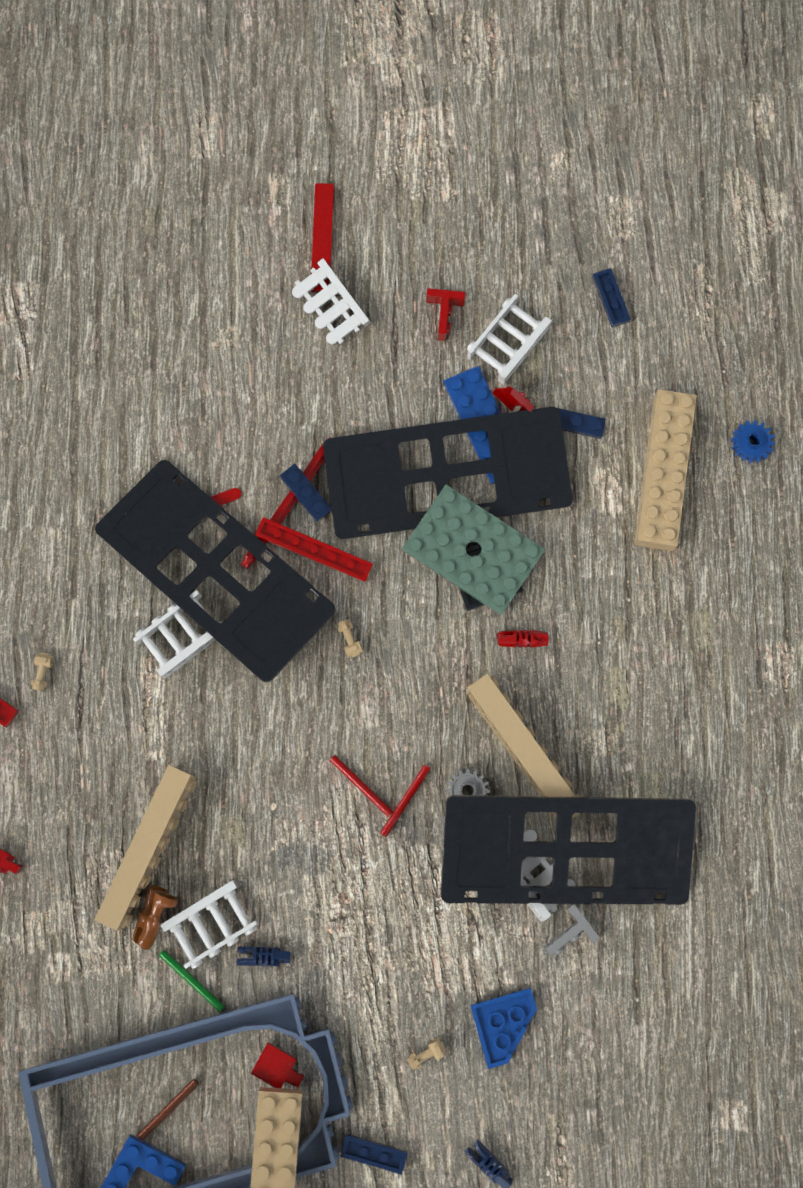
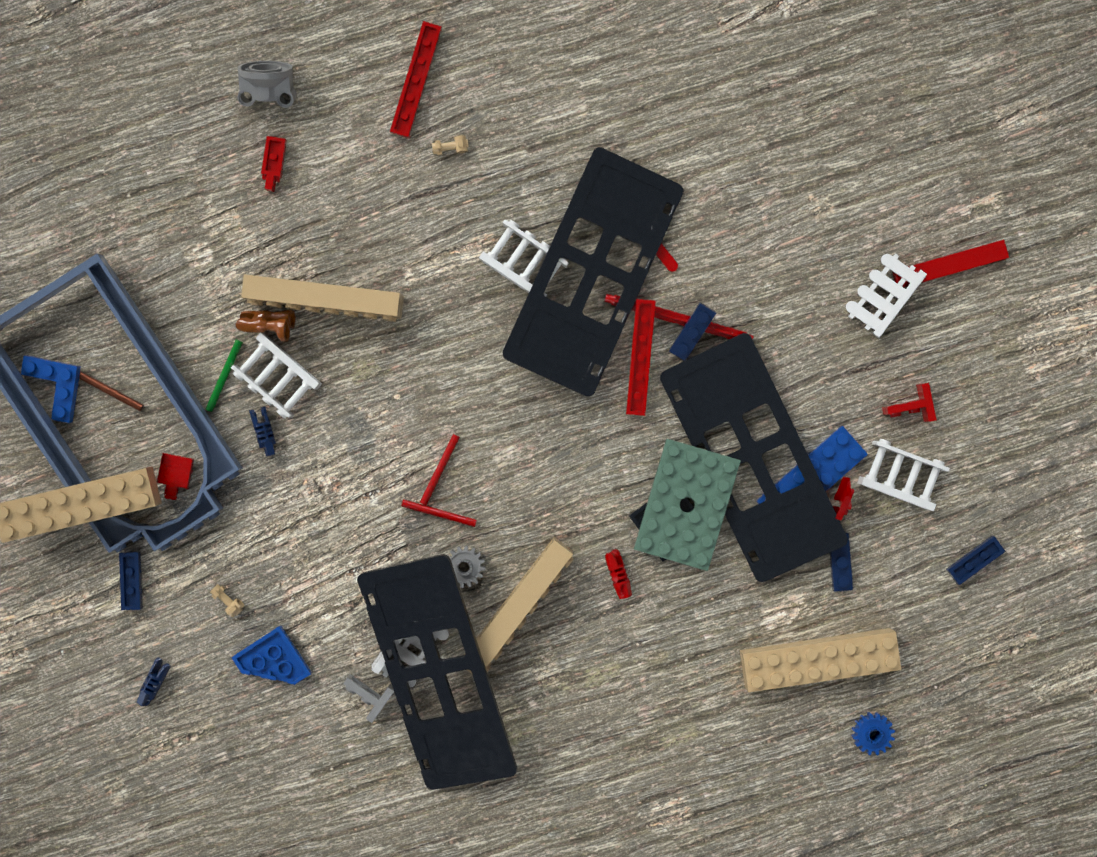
camera: 75 degrees right, 10 degrees up
(353, 648) = (561, 422): tan bar -> none

